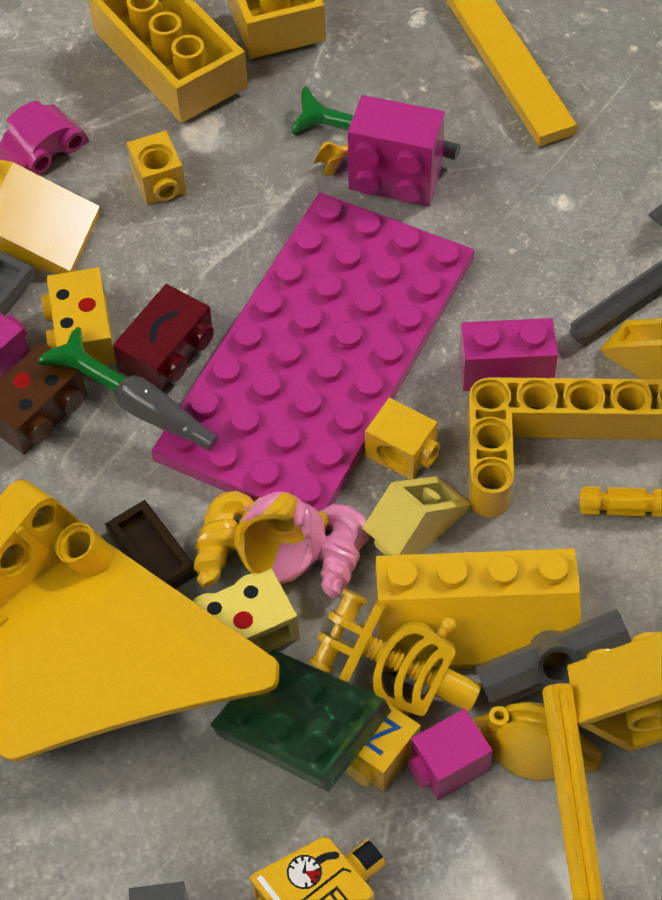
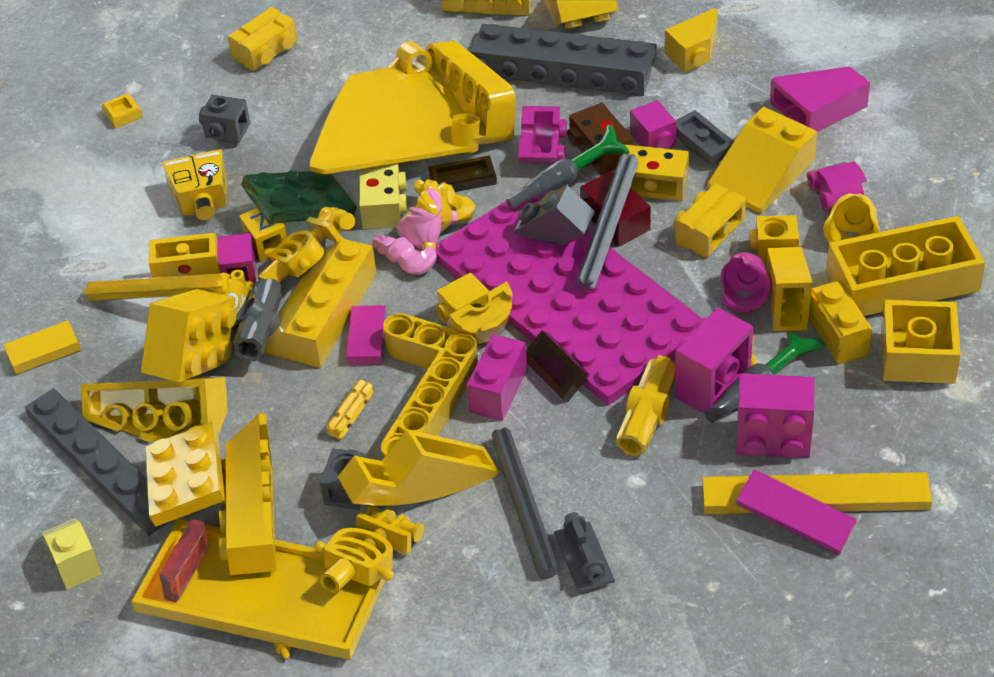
camera: 115 degrees right, 10 degrees down
(64, 464) = (541, 134): none -> dark pink cylinder
(104, 104) = (851, 214): none -> yellow hair
(147, 238) = (709, 220): none -> yellow brick
(216, 309) = (607, 222): none -> axle
(234, 373) = (555, 218): none -> dark grey slope
(237, 127) = (790, 288): none -> yellow slope
(244, 163) = (746, 274): none -> dark pink hair
(270, 79) = (839, 322): none -> yellow brick
(414, 515) = (402, 289): light yellow slope -> none
(430, 386) = (485, 320): none -> yellow cylinder
(449, 76) = (775, 415): none -> dark pink brick
(459, 301) = (555, 365): none -> dark brown tile
(470, 208) = (647, 406): none -> yellow piece
(500, 811) = (184, 255): none -> yellow brick
(504, 530) = (366, 335): none -> dark pink tile
(546, 52) = (796, 511): none -> dark pink tile

